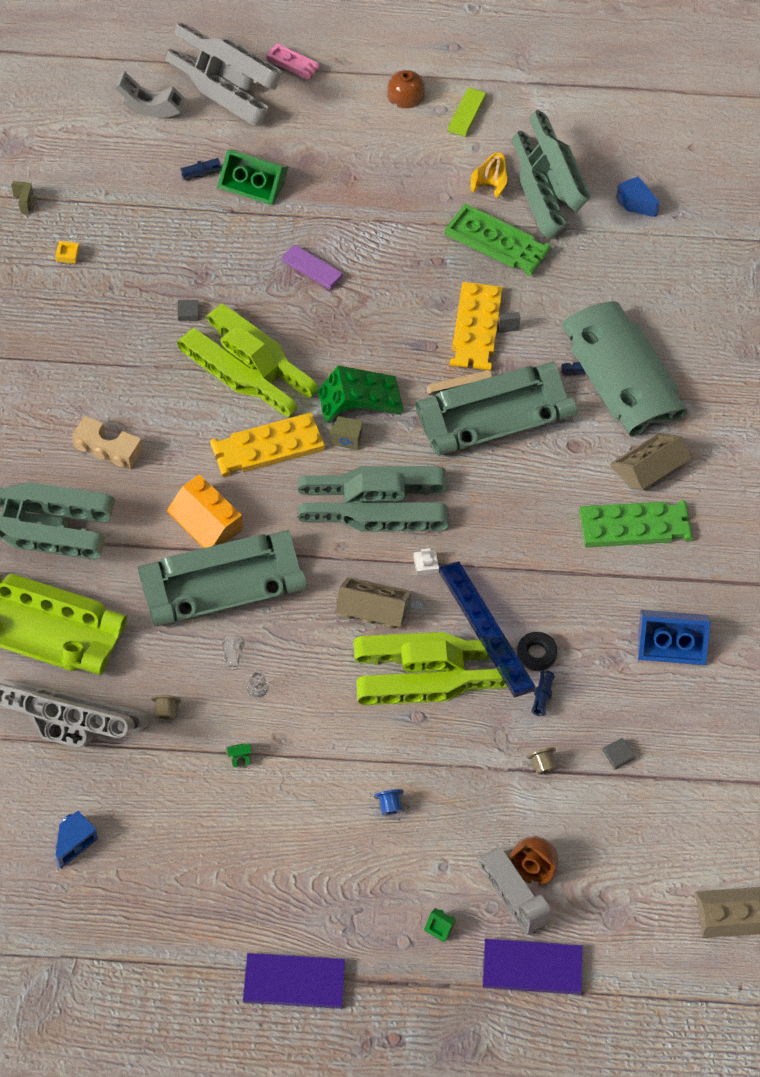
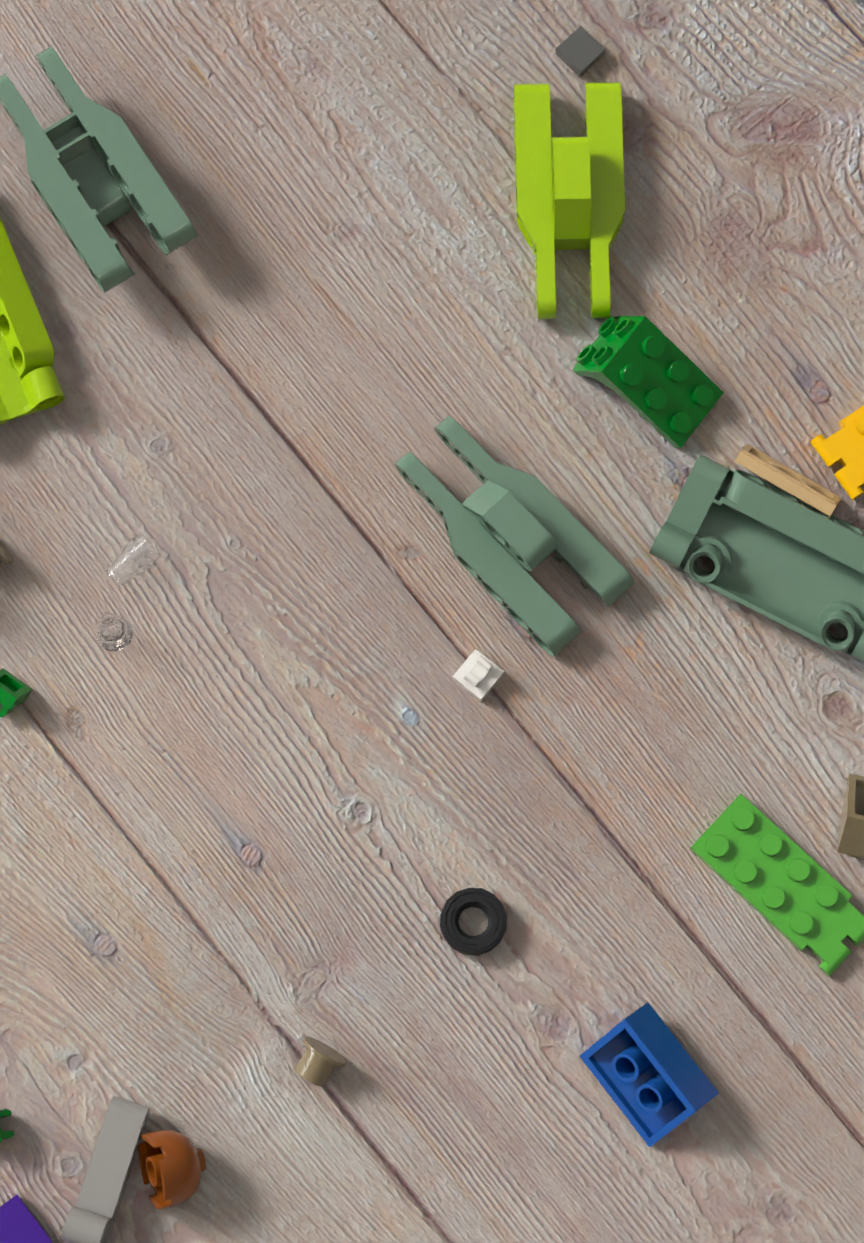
camera: 50 degrees right, 20 degrees up
(120, 451) = (293, 172): tan arch -> none
(205, 513) = (293, 352): light orange slope -> none
(221, 577) = (221, 456): sand green panel -> none
(268, 444) = (472, 332): yellow hinge -> none
(312, 267) = (797, 137): medium lavender tile -> none
(346, 432) = (575, 411): olive brick -> none
(372, 602) = (357, 662): dark tan slope -> none
(390, 801) = (96, 927): blue piece -> none
(421, 653) = (334, 795): lime beam -> none
(487, 629) = (435, 837): clear blue tile -> none
(543, 693) = (417, 980): dark blue pin -> none
(618, 753) = (417, 1143): dark grey tile -> none

